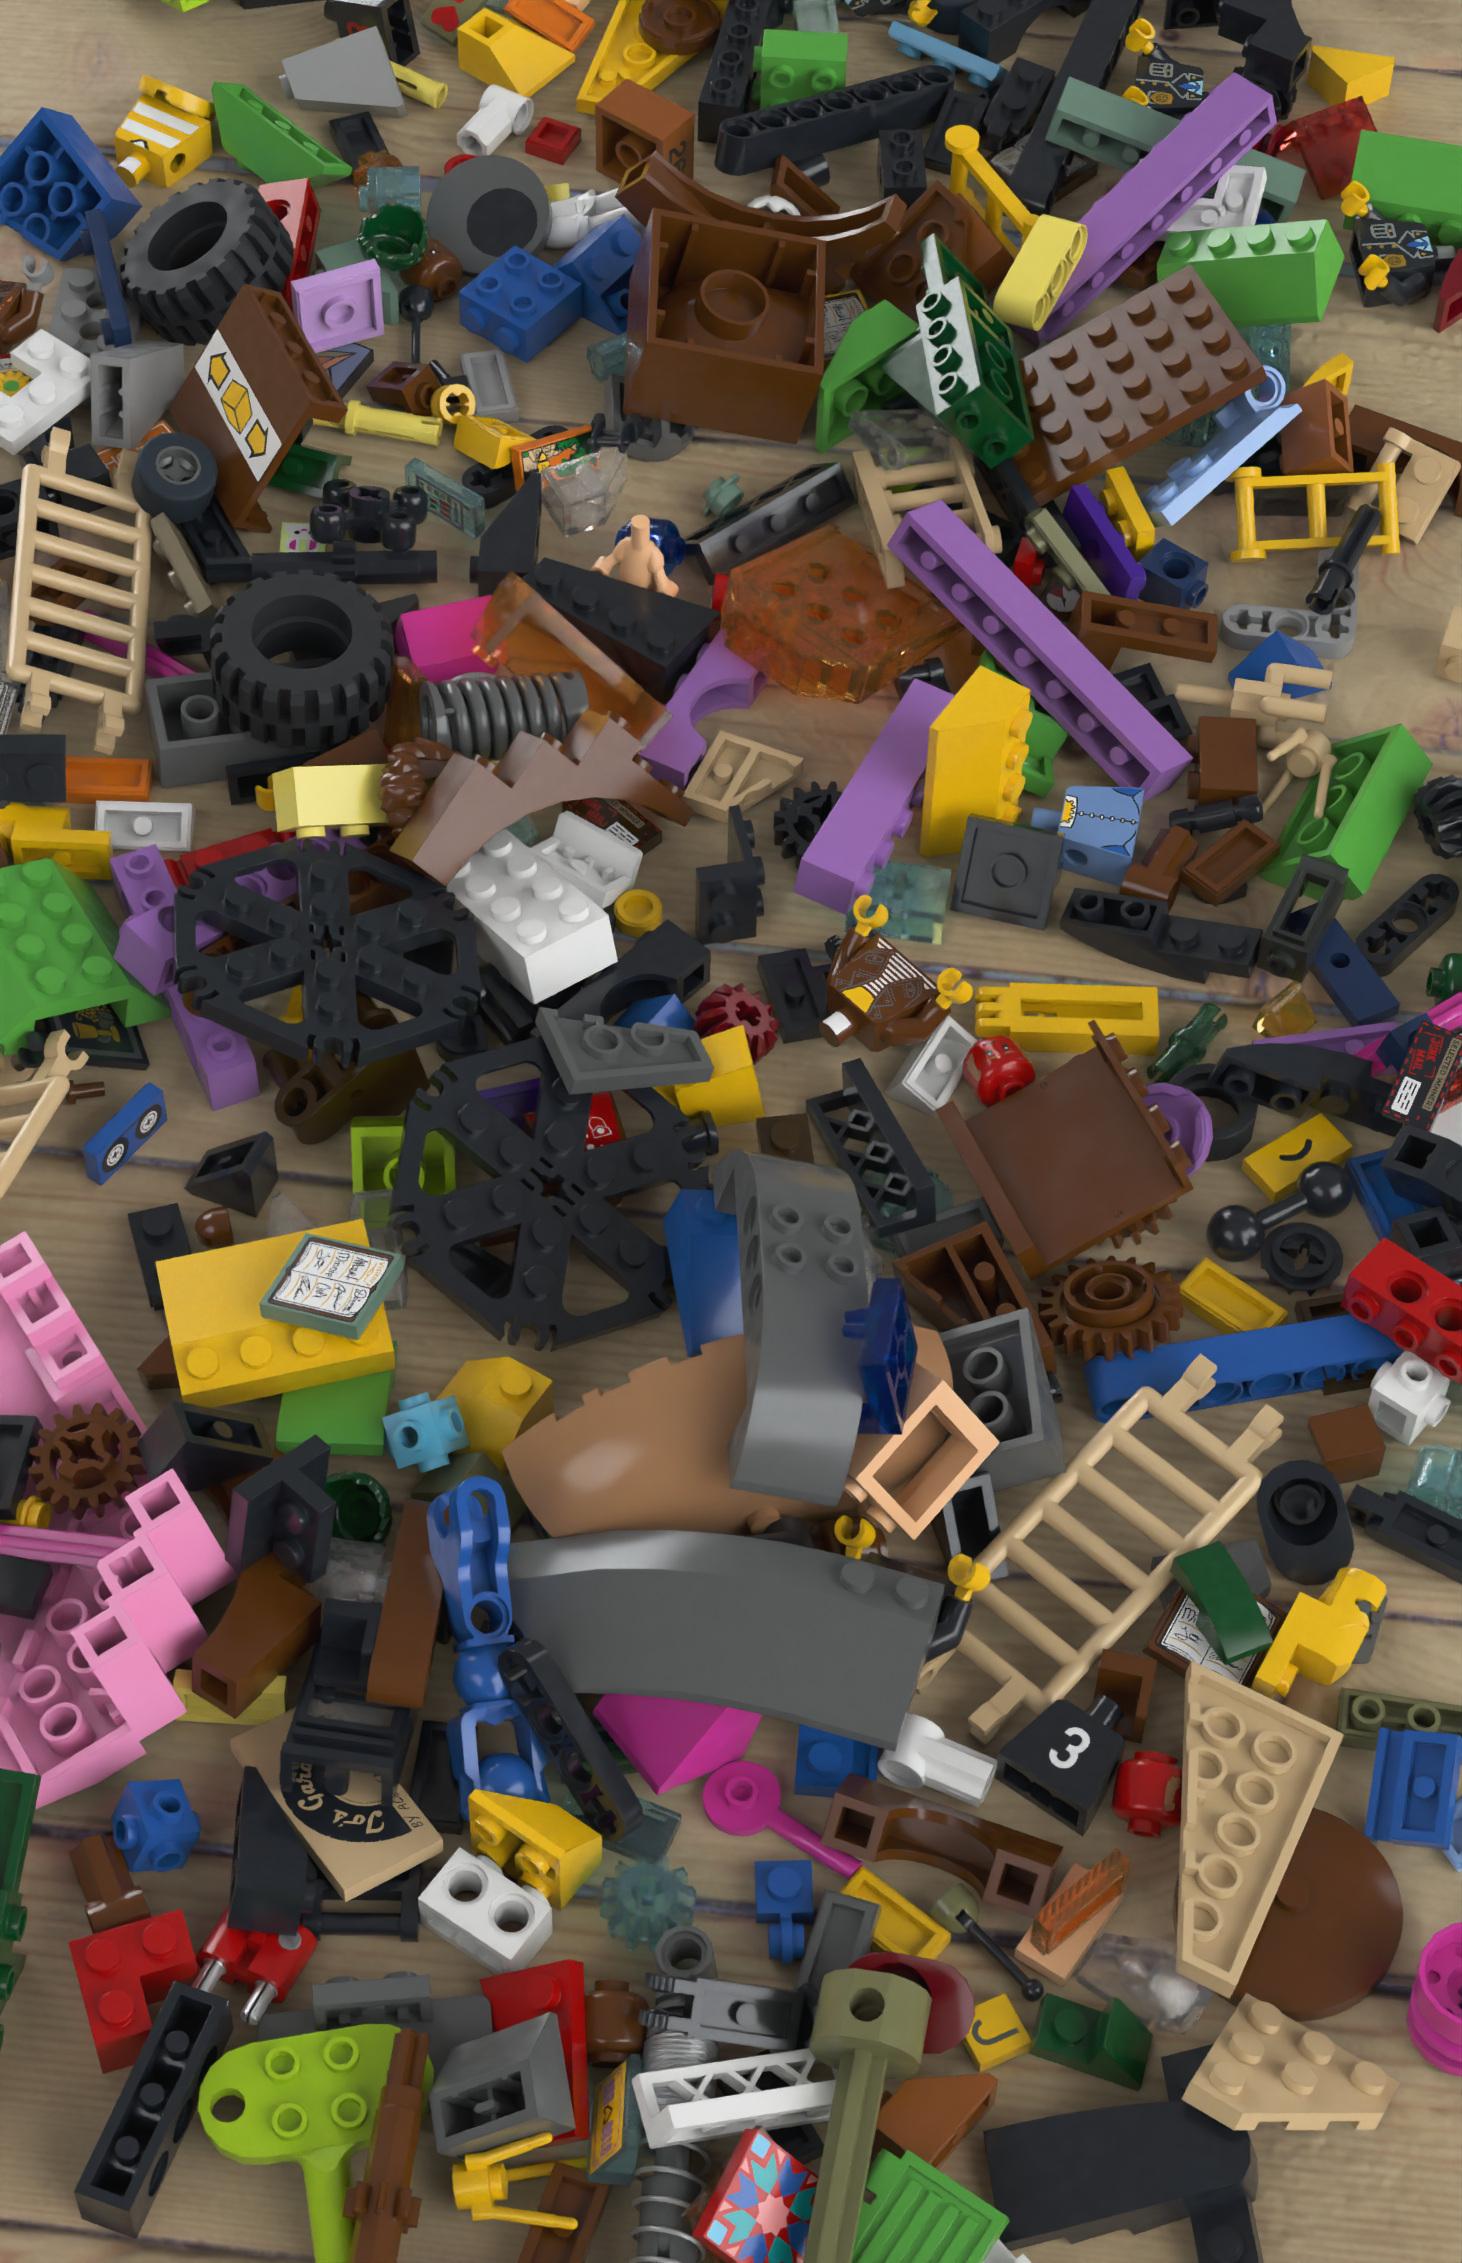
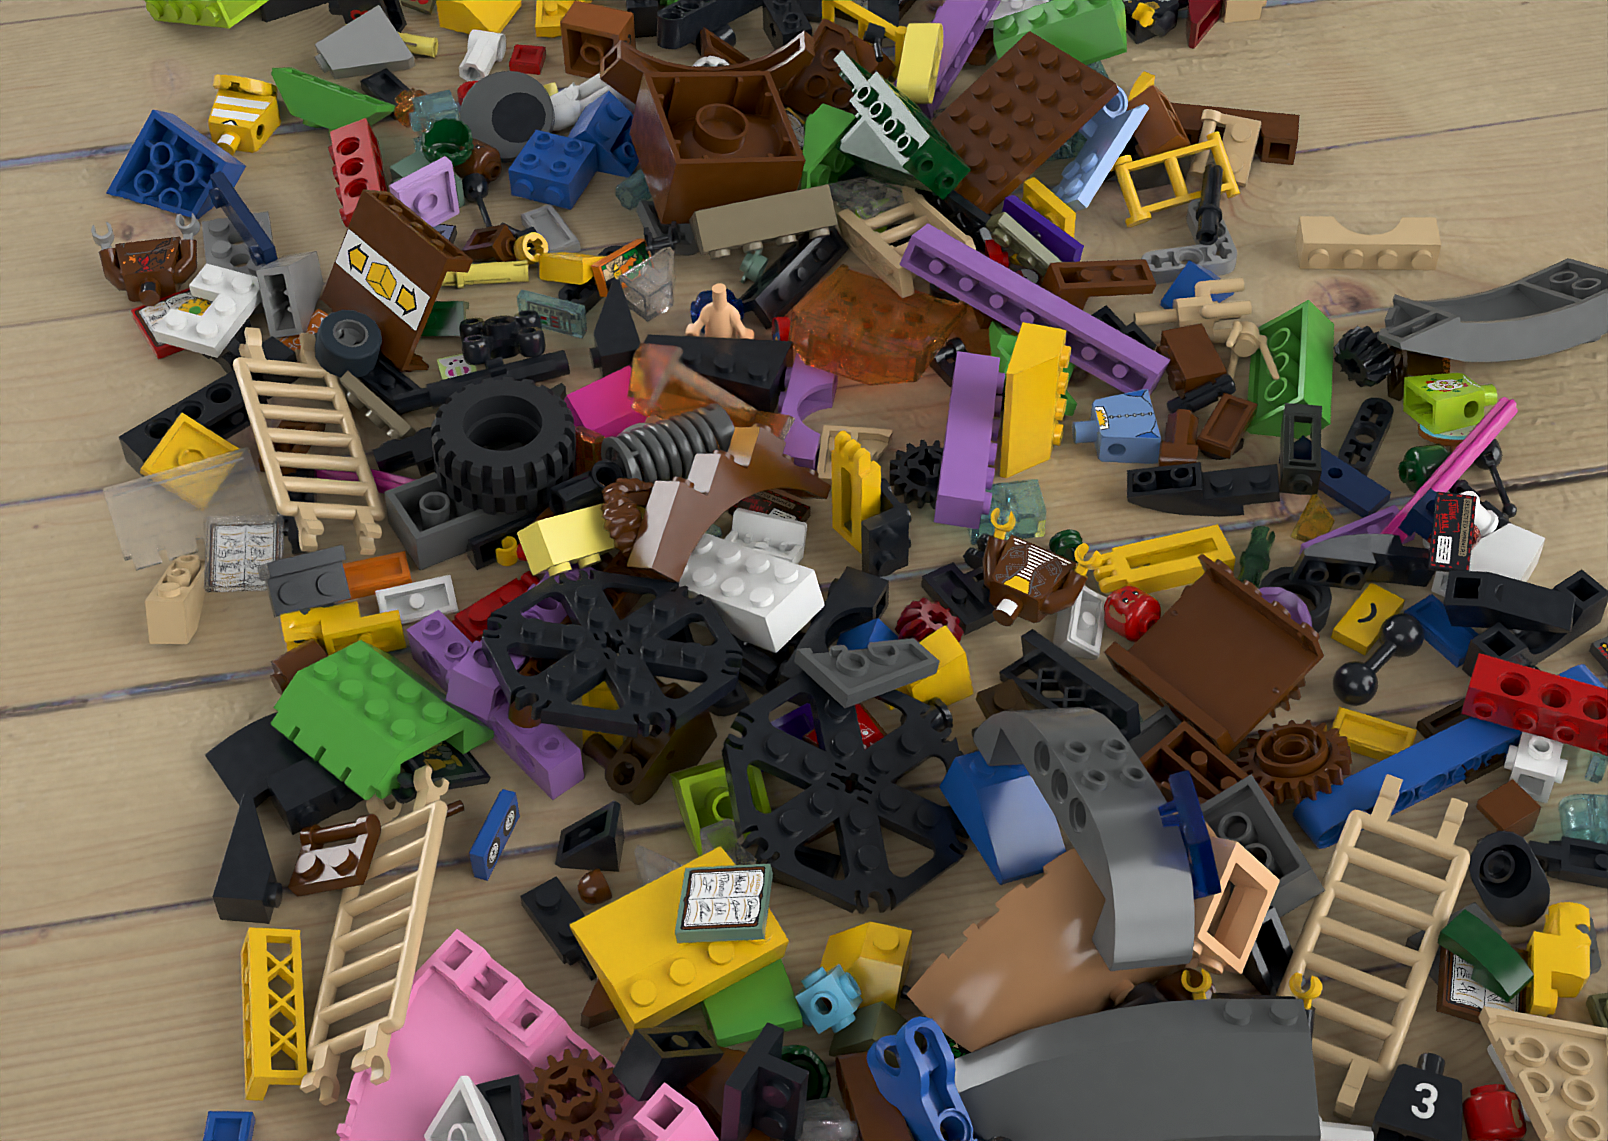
camera: 15 degrees left, 5 degrees down
(198, 256) = (312, 188): black tyre -> none
(371, 741) = (583, 489): none -> black piece
(637, 912) = (821, 564): yellow tile -> none
(707, 816) = (854, 487): none -> yellow hinge
(746, 442) = (764, 220): none -> dark tan slope
(963, 959) = (1065, 543): none -> dark green bush
(996, 218) = (875, 36): none -> black hand
(1008, 871) = (1077, 470): black bracket -> none
(1129, 1683) = (1441, 1037): reddish brown panel -> none
(1174, 576) = (1099, 241): dark blue brick -> none
(1288, 1241) = (1419, 682): black gear -> none

